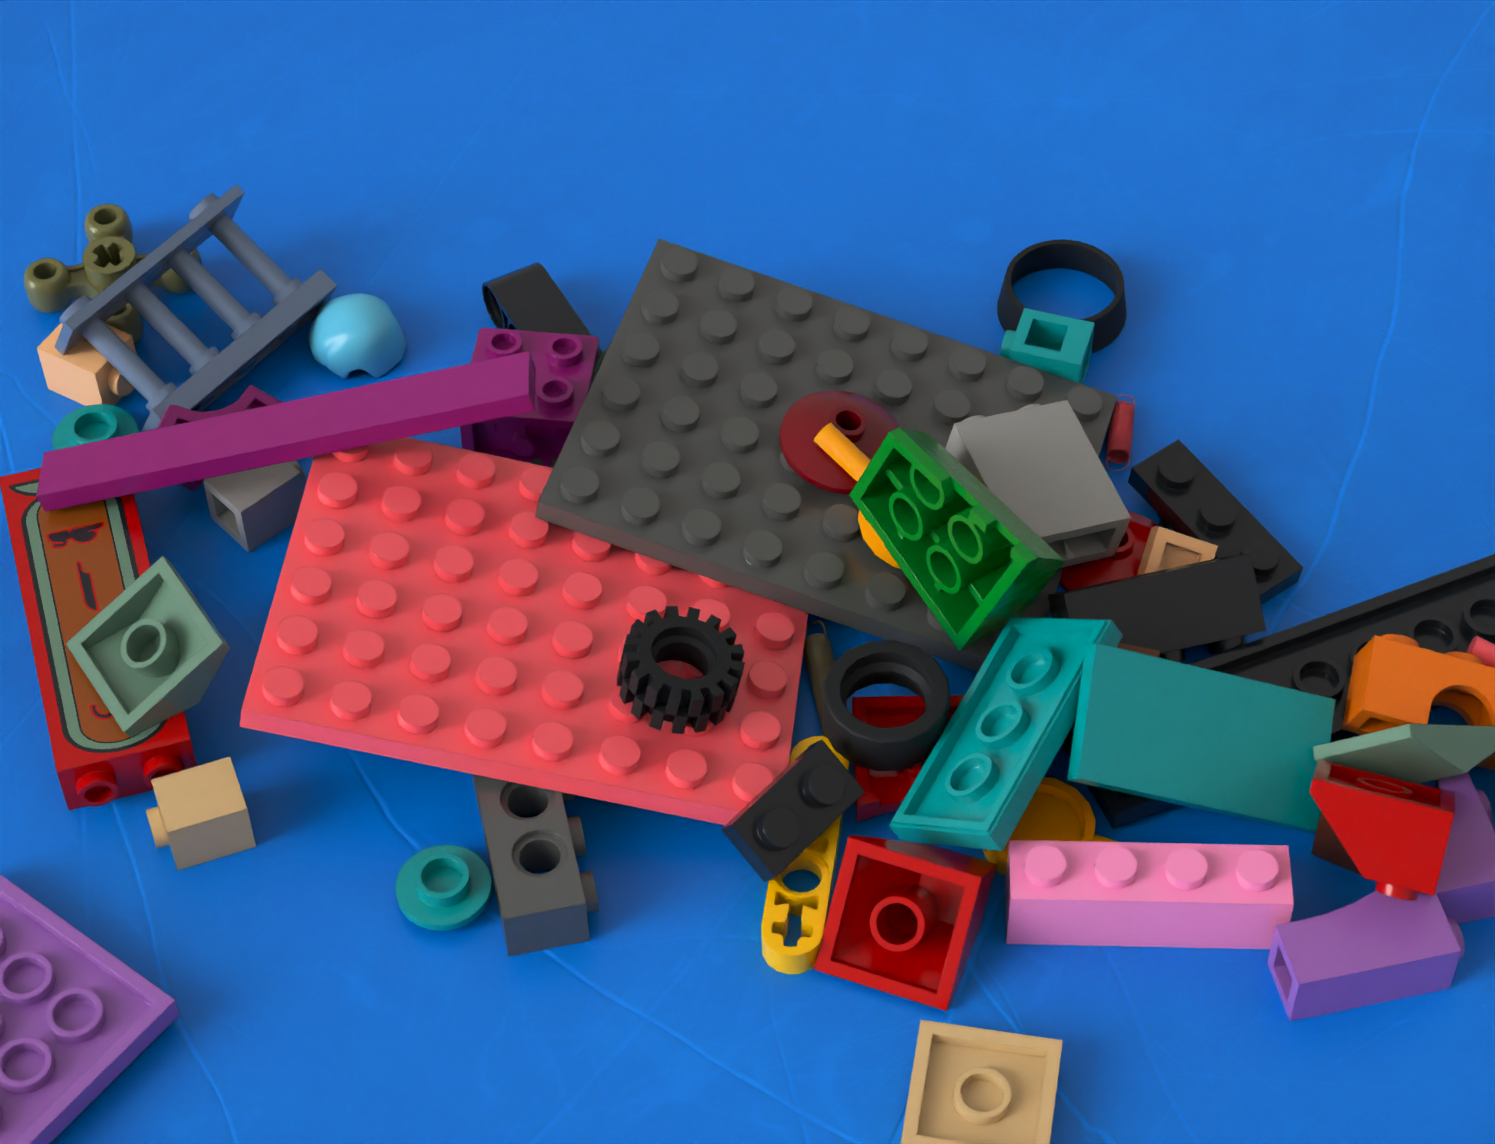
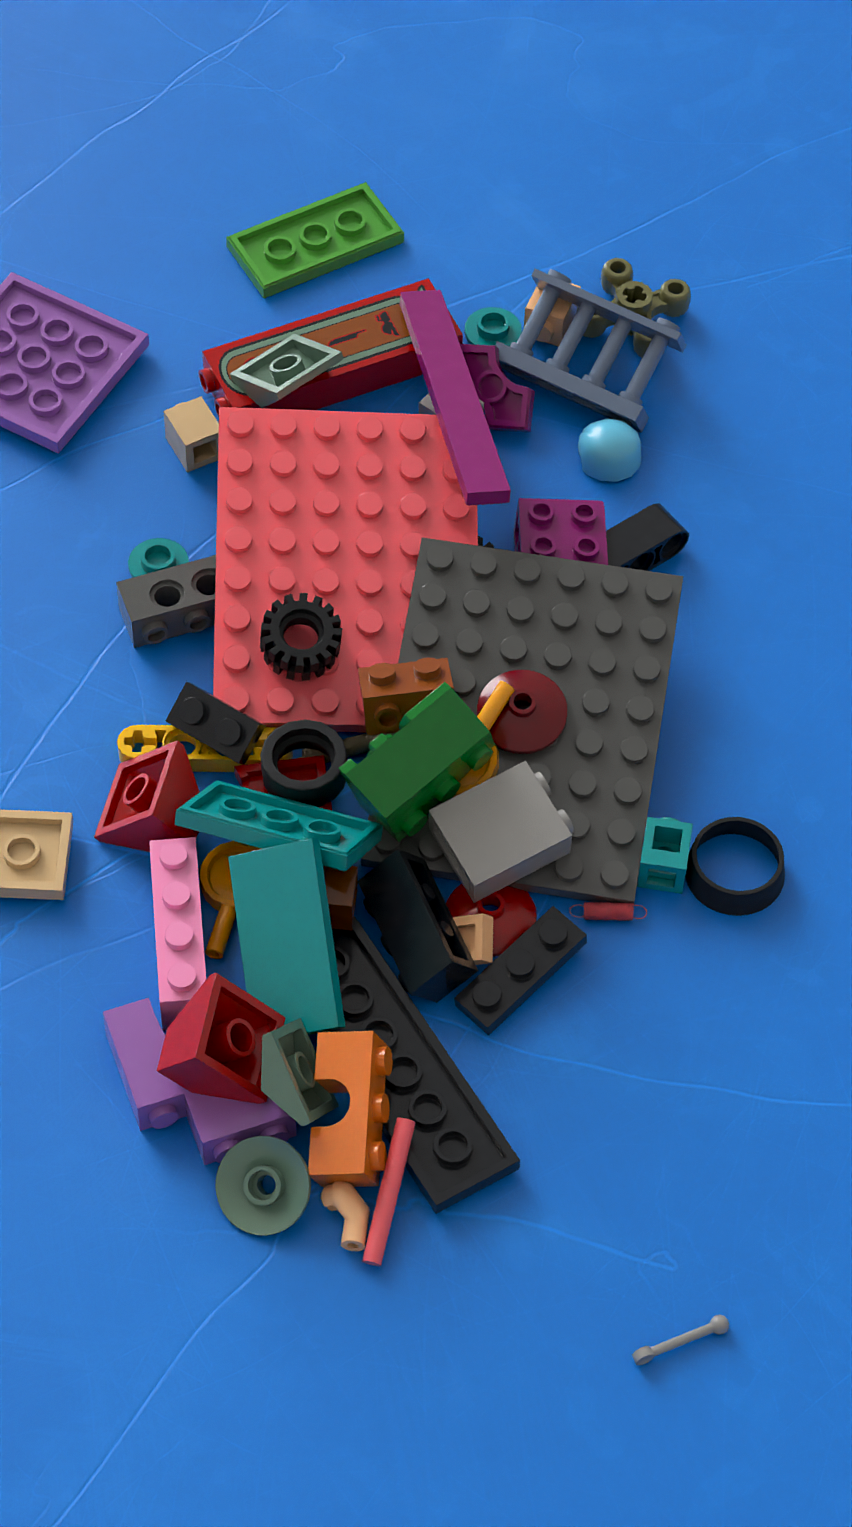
camera: 80 degrees right, 5 degrees up
(808, 549) = (394, 689): none -> dark orange bracket

